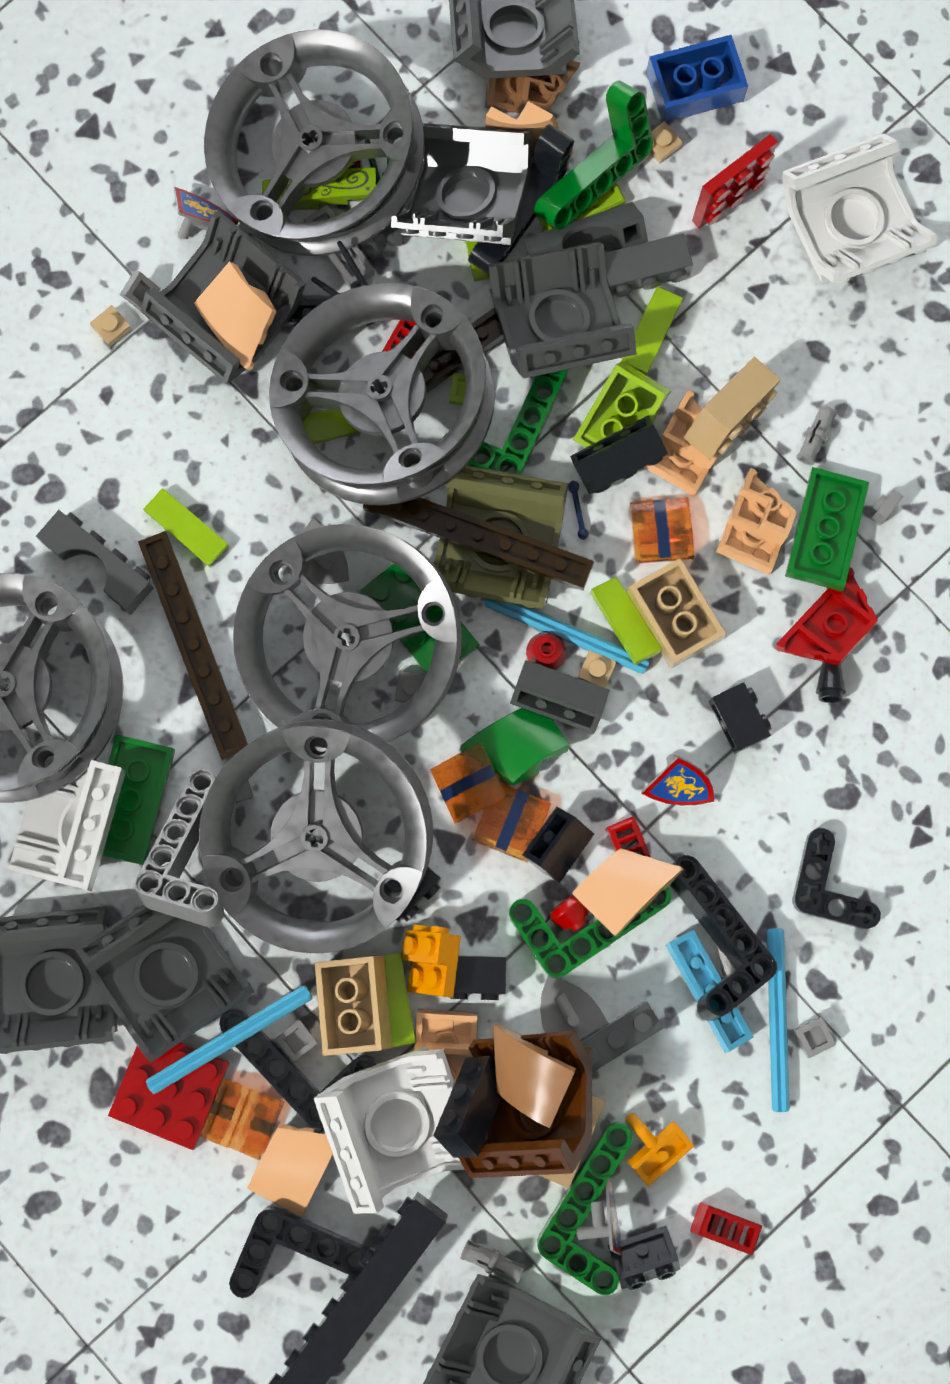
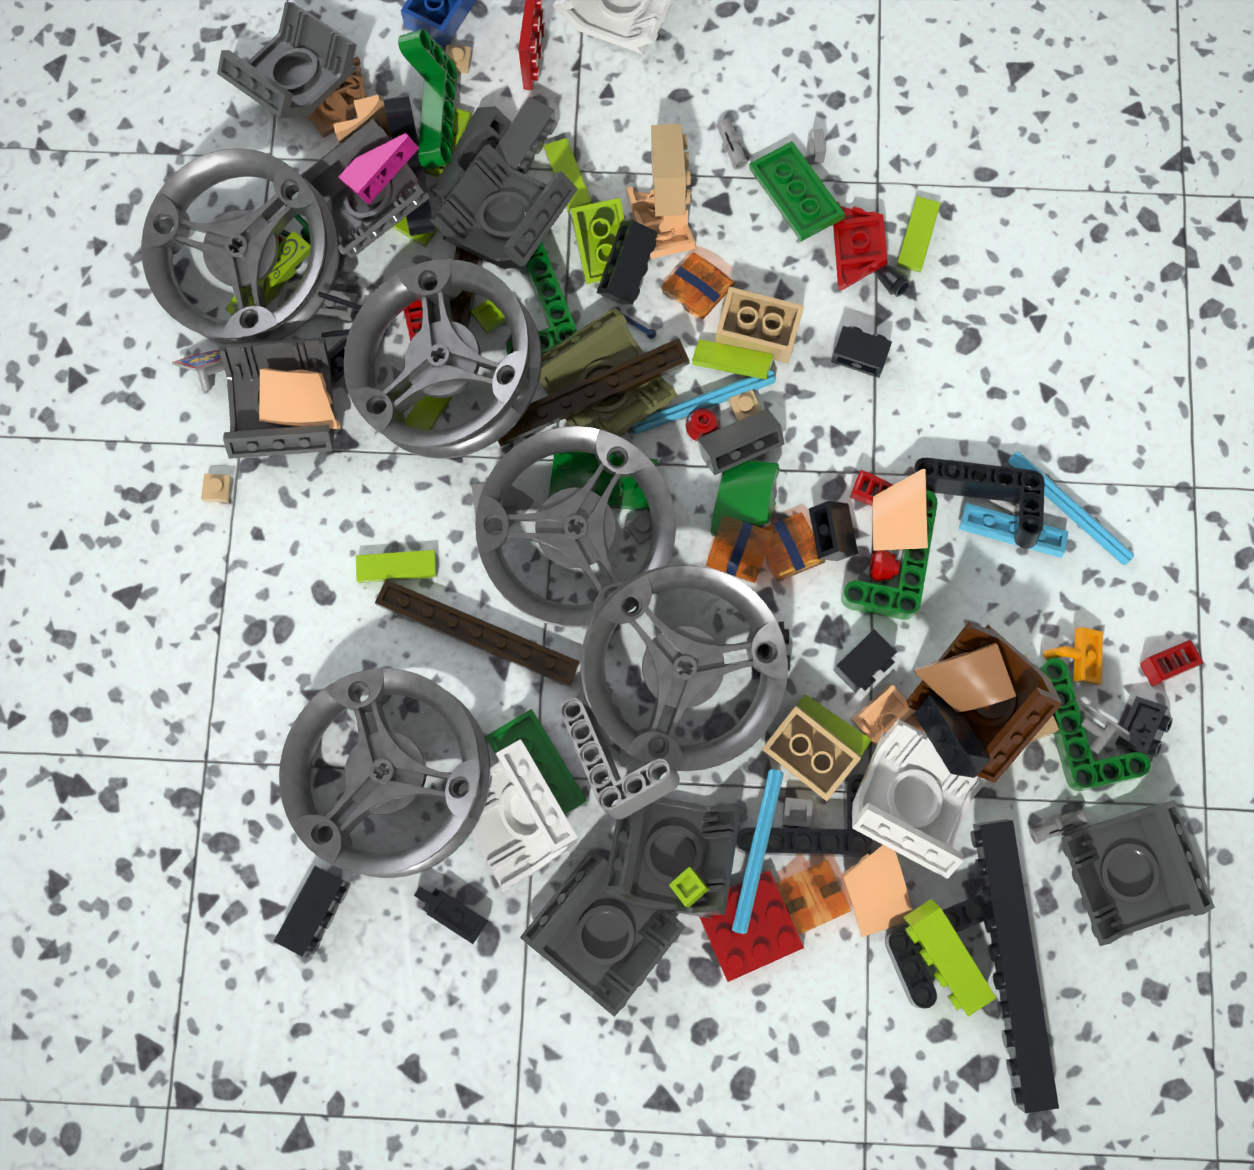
camera: 40 degrees left, 5 degrees down
(67, 539) = (325, 644): dark grey arch -> none
(136, 287) = (213, 447): light grey plate -> none
(146, 1013) = (689, 886): none -> lime plate
(290, 1274) = (949, 957): none -> lime brick
(432, 959) = (831, 676): light orange plate -> none
(485, 178) = (376, 168): none -> dark pink slope
(569, 1008) = (939, 626): light grey shield -> none
(622, 1034) = (992, 600): dark grey brick -> none
(680, 784) = (868, 423): shield -> none
(756, 525) = (751, 229): light nougat slope -> none
(814, 1037) = (1103, 496): light grey plate -> none
(821, 896) = (1016, 410): black beam -> none
(895, 665) = (918, 234): none -> lime tile

